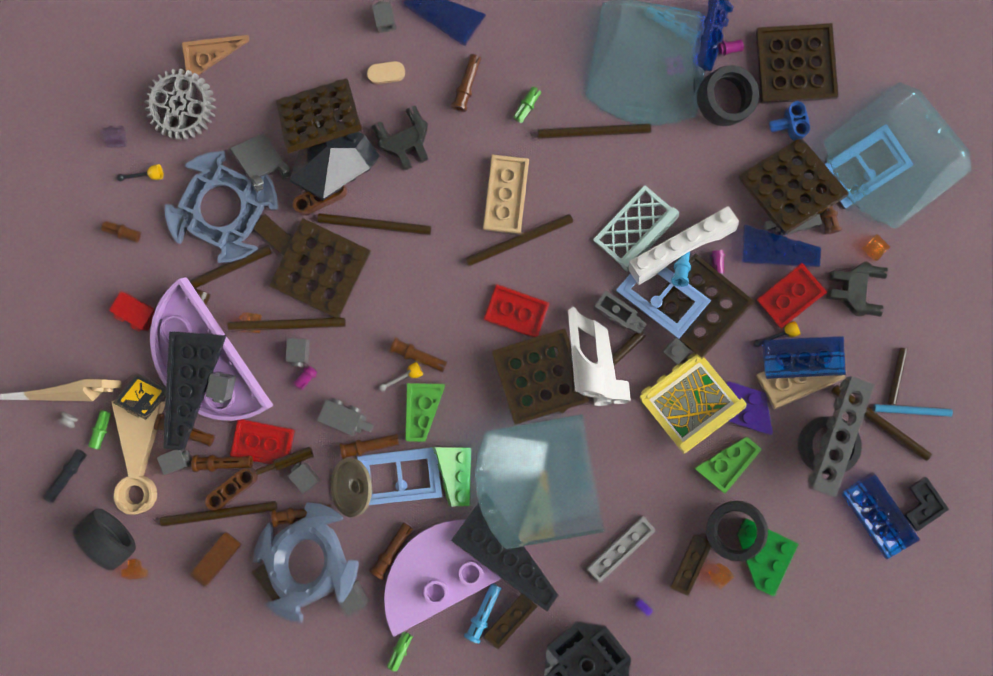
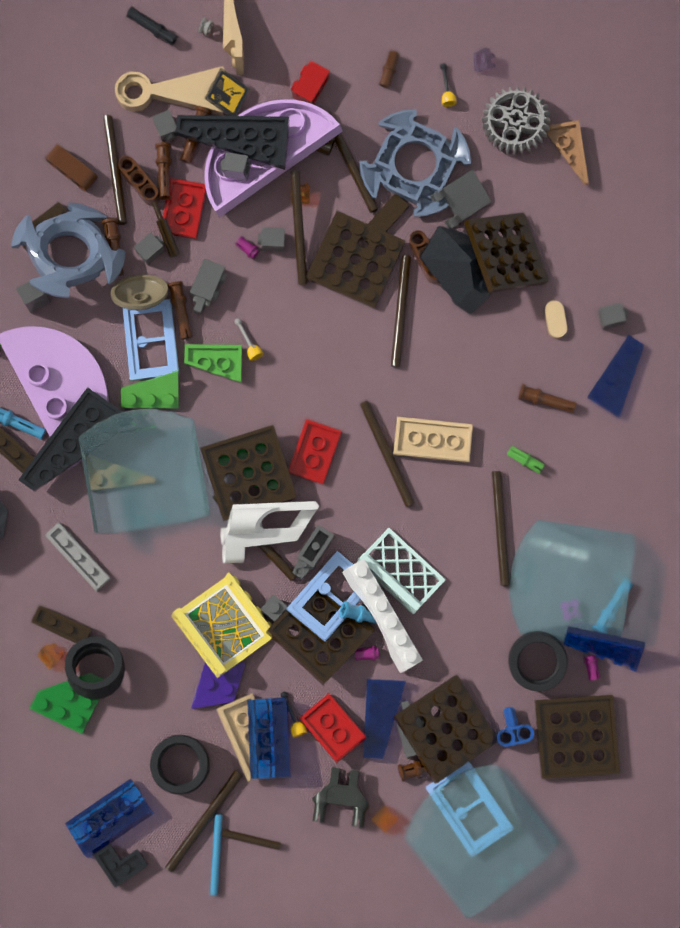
camera: 85 degrees right, 5 degrees down
(99, 429) = (196, 56): bright green axle -> none
(104, 539) = (91, 64): black tyre -> none
(134, 570) = (61, 93): clear orange tile -> none
(386, 558) = (71, 328): reddish brown pin -> none
(406, 140) = (485, 340): pearl dark grey connector -> none
(408, 351) = (273, 346): reddish brown pin -> none
(643, 606) = (21, 578): dark purple tile -> none
(729, 464) = (161, 664): bright green wing -> none
(862, 391) = (138, 755): dark grey brick -> none

